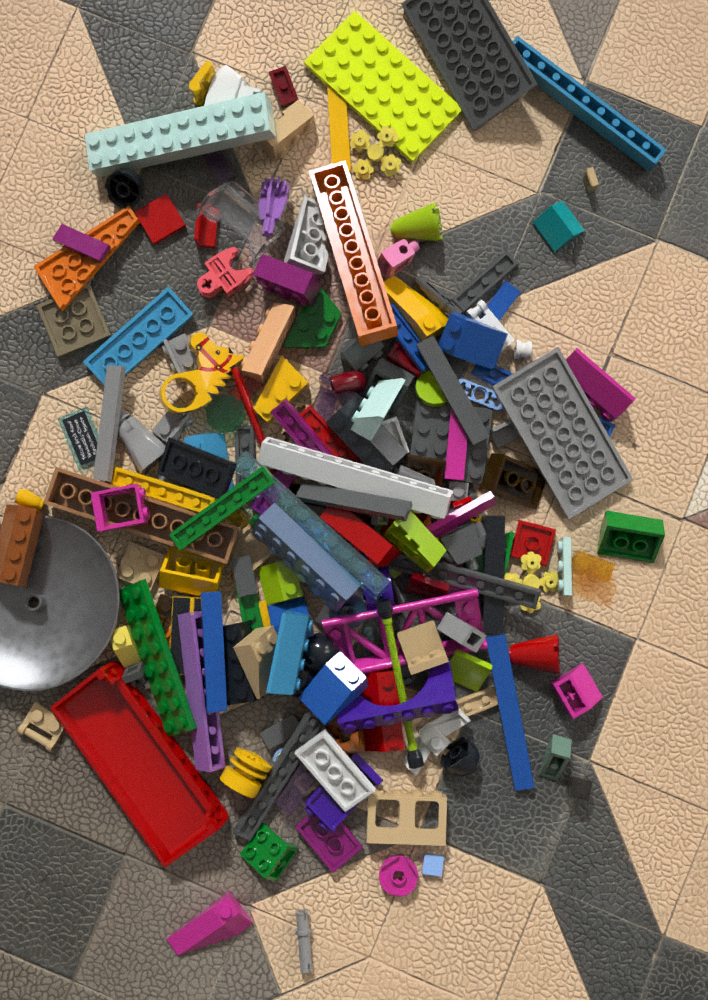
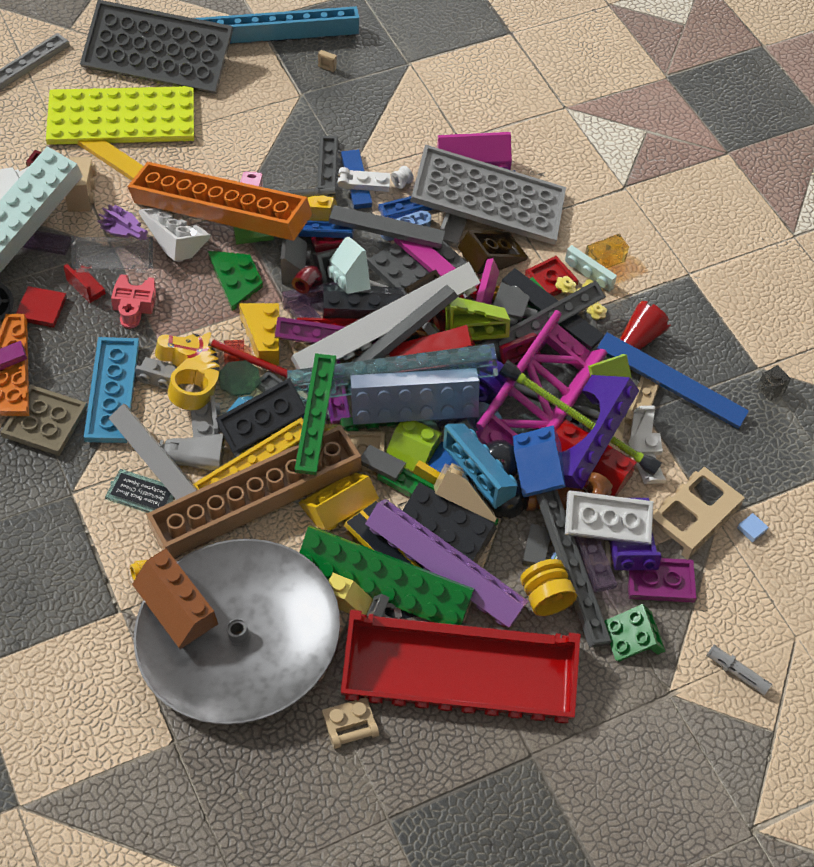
camera: 50 degrees left, 30 degrees down
(100, 508) = (223, 503): dark pink window -> none
(140, 564) = (289, 529): tan plate -> none
(213, 651) = (424, 517): blue tile -> none
(216, 923) = (662, 729): dark pink wedge -> none
(269, 341) = (218, 305): light nougat slope -> none
(287, 281) = (189, 256): magenta brick -> none
(375, 152) = (161, 149): light yellow plant -> none
(396, 886) = (736, 566): dark pink plate -> none
(419, 225) = (246, 157): lime cone -> none
(422, 647) = (565, 382): tan bracket -> none
(429, 391) = (373, 243): lime tile -> none
(461, 632) = (579, 347): light grey slope -> none
(461, 758) = (679, 436): black cylinder -> none
(472, 340) = (364, 190): blue slope -> none
(555, 757) = (736, 380): sand green slope -> none
(558, 226) = (337, 101): teal slope -> none
(576, 691) = (694, 332): dark pink slope -> none
(630, 536) = (607, 217): green slope -> none

